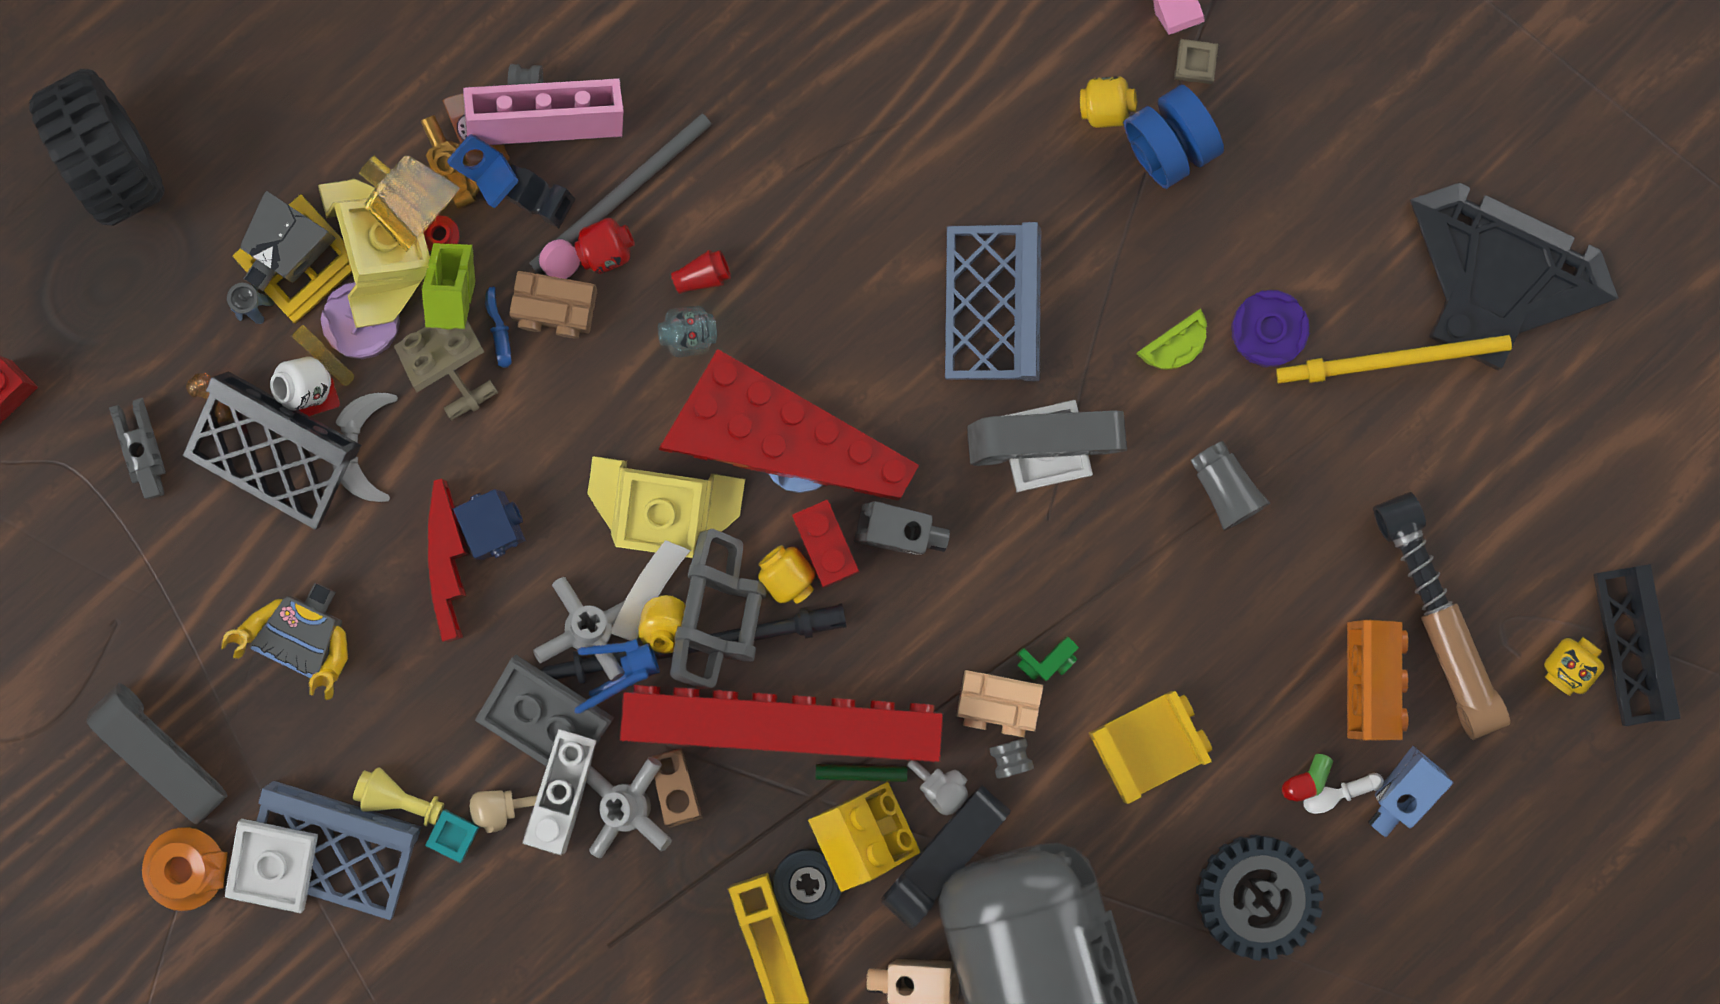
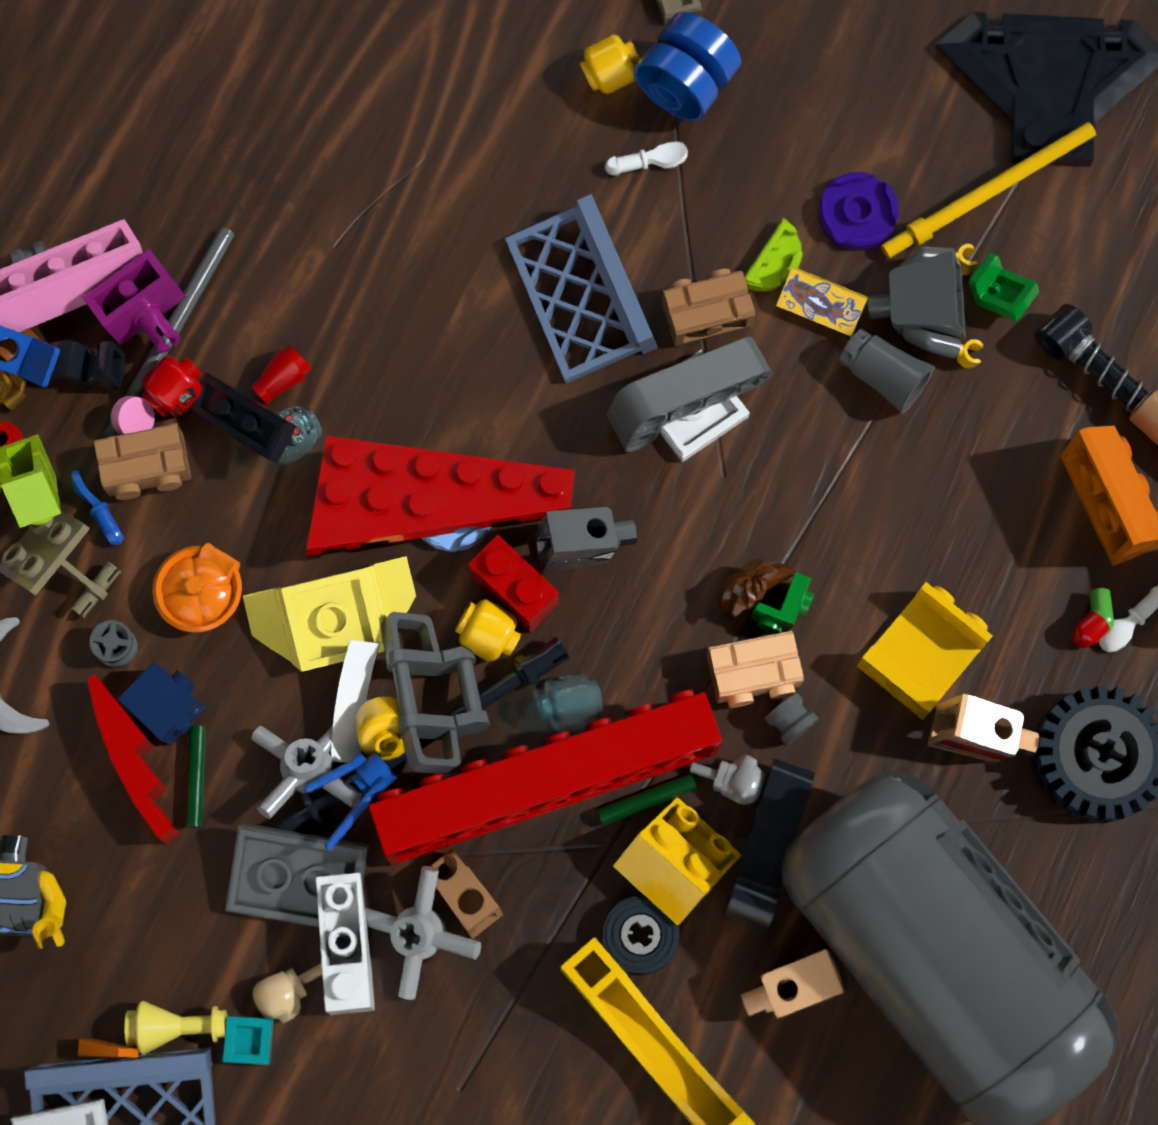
camera: 20 degrees left, 10 degrees down
(332, 793) = (104, 1049): none -> orange piece
(462, 451) = (108, 637): none -> dark grey wheel
(493, 597) = (195, 777): none -> dark green piece
(556, 436) = (197, 588): none -> orange piece
(602, 157) = (136, 302): none -> magenta brick
(652, 303) = (243, 418): none -> black tile
(830, 665) = (570, 701): none -> clear light blue head
(1027, 627) = (750, 584): none -> reddish brown hat
(1097, 364) = (707, 306): none -> medium nougat brick
(1121, 206) = (665, 156): none -> white piece
(1166, 836) = (980, 729): none -> light nougat torso
(1200, 400) = (822, 301): none -> tile
(1293, 440) = (929, 302): none -> dark grey torso
(1363, 455) = (1001, 289): none -> green bracket

